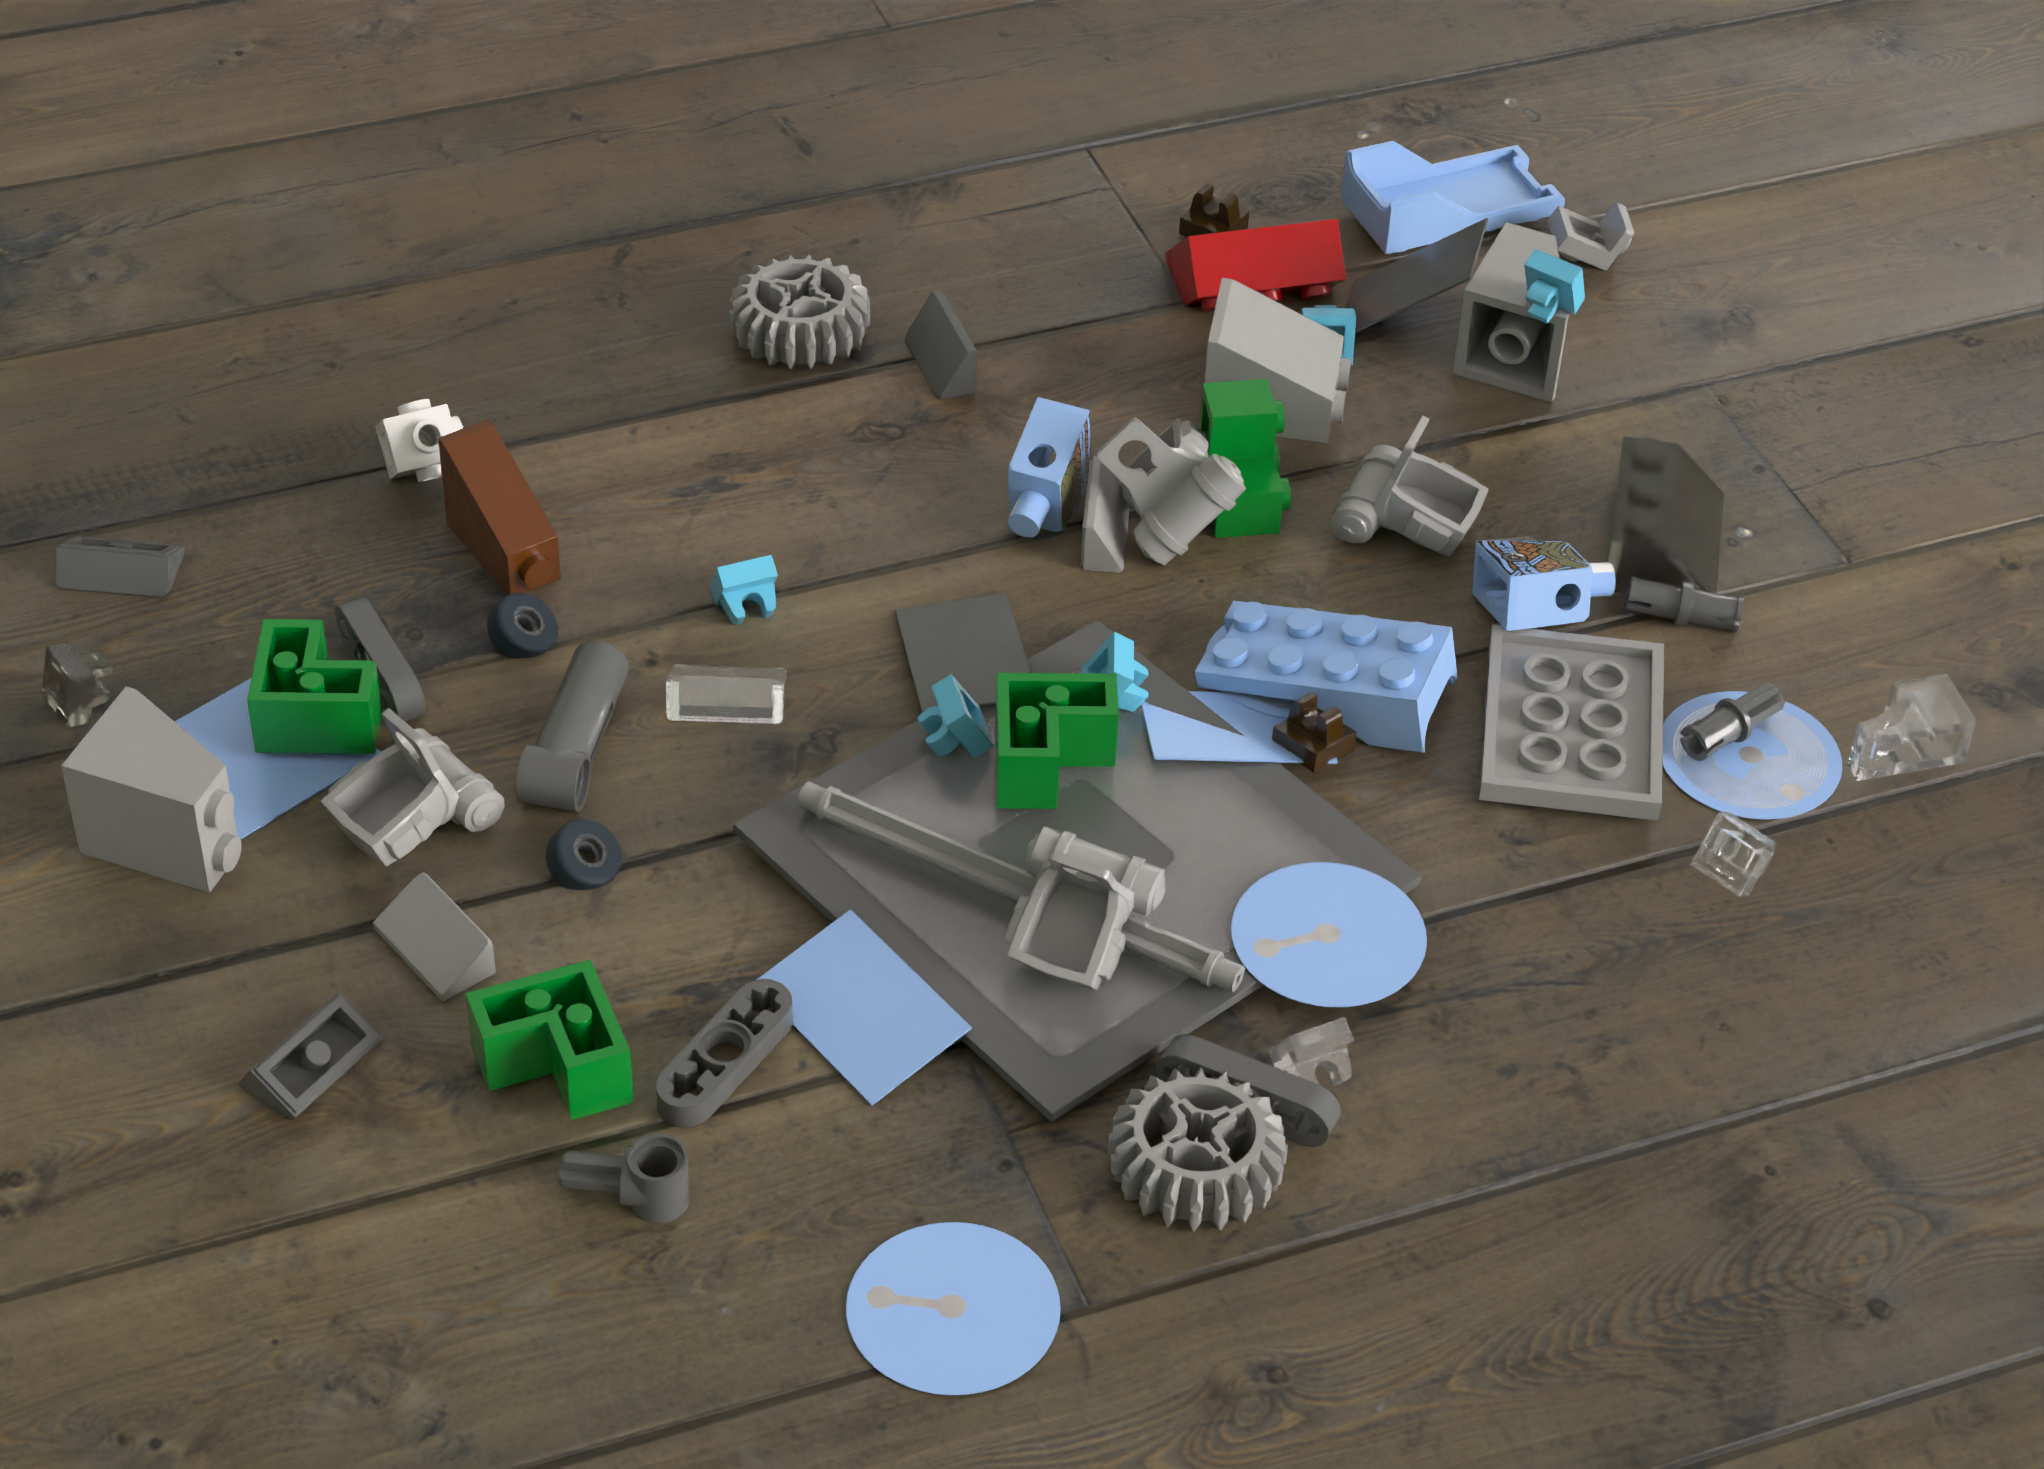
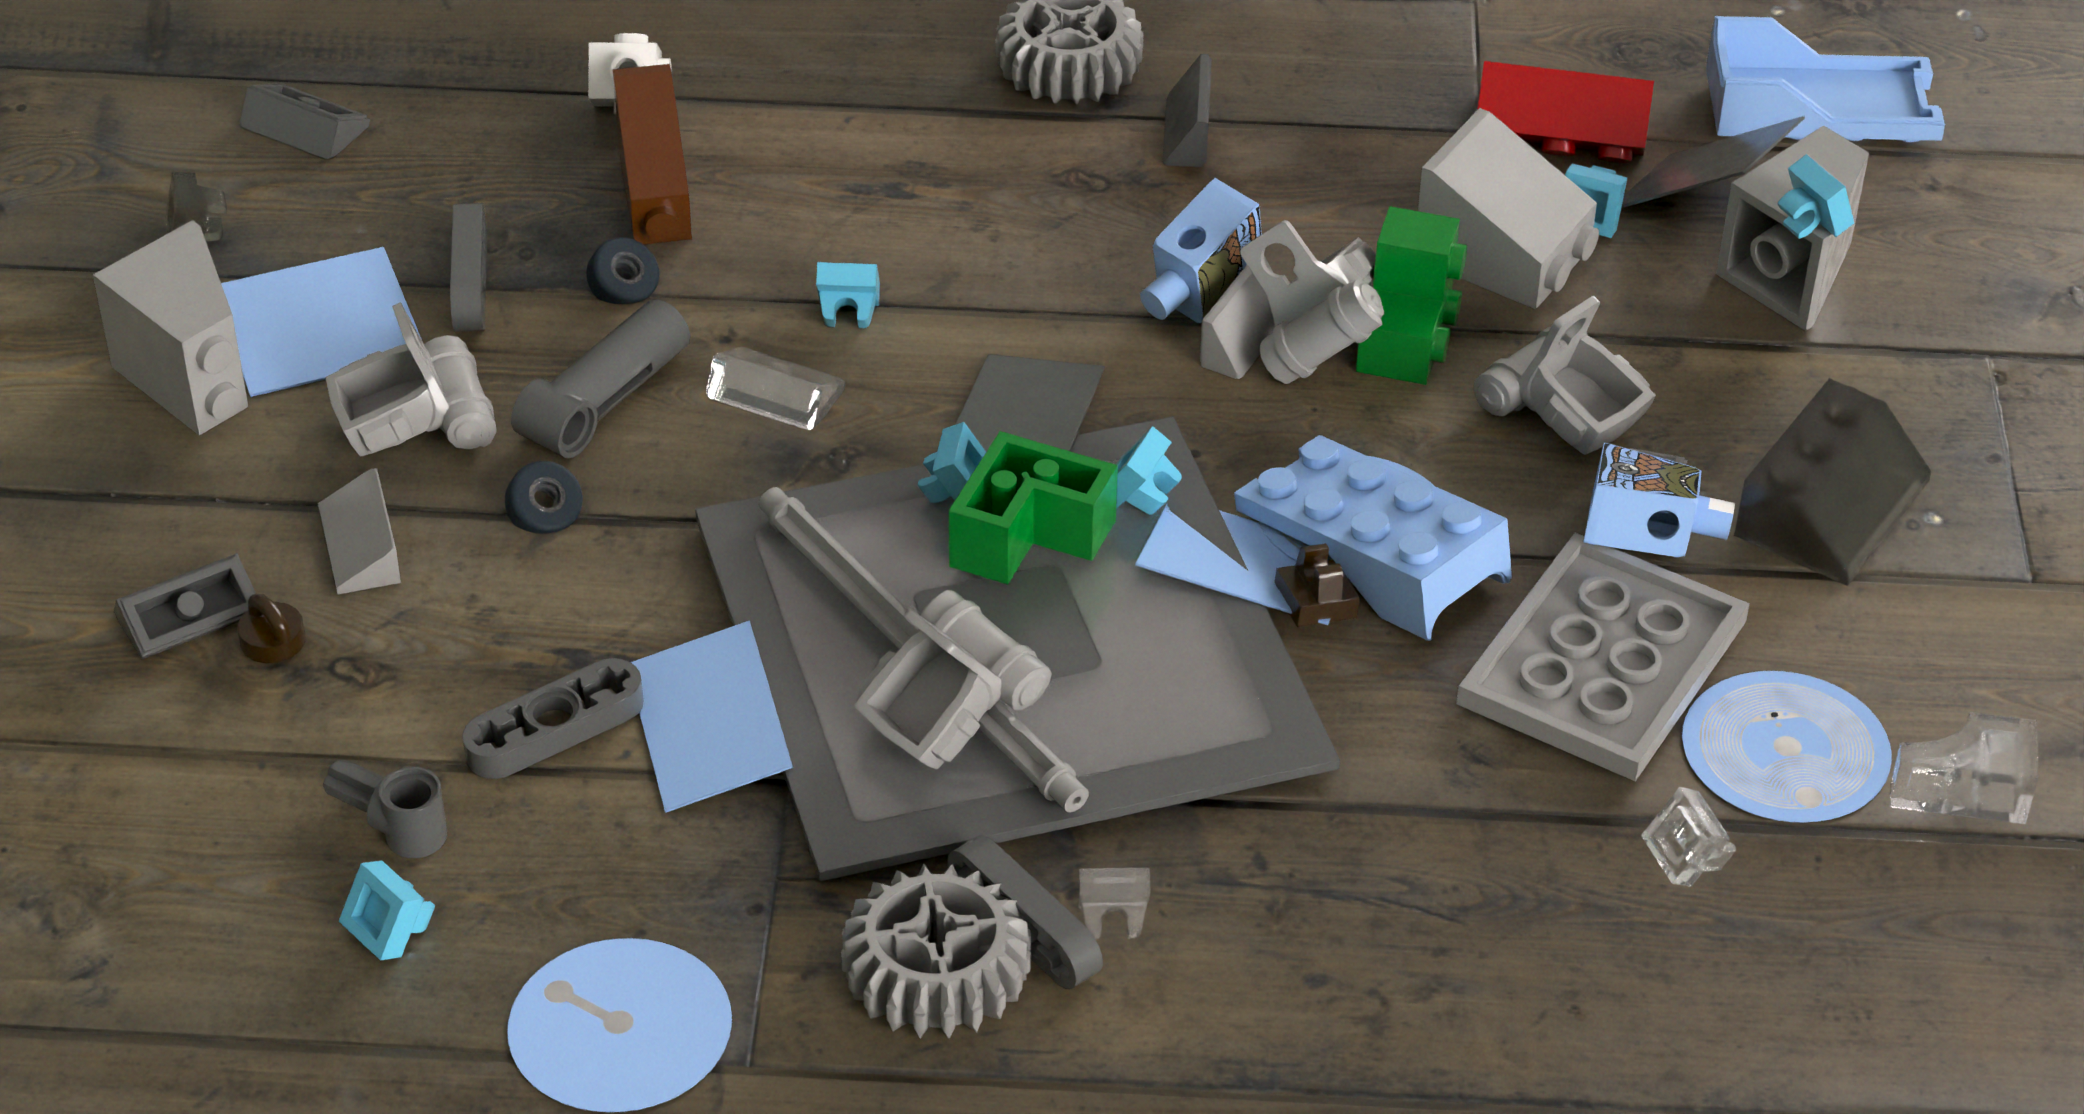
camera: 25 degrees right, 0 degrees up
(305, 700) = (370, 267): green brick -> none
(407, 1054) = (270, 630): none -> dark brown tile
(557, 1027) = (397, 644): green brick -> none
(688, 1276) = (384, 910): none -> medium azure tile
(1212, 214) = (1554, 49): dark brown tile -> none
(1328, 934) = (1205, 787): light blue piece -> none
(1589, 240) = (1947, 173): light grey bracket -> none
(1683, 604) = (1804, 571): dark grey pin -> none
(1731, 721) = (1778, 703): dark grey axle -> none

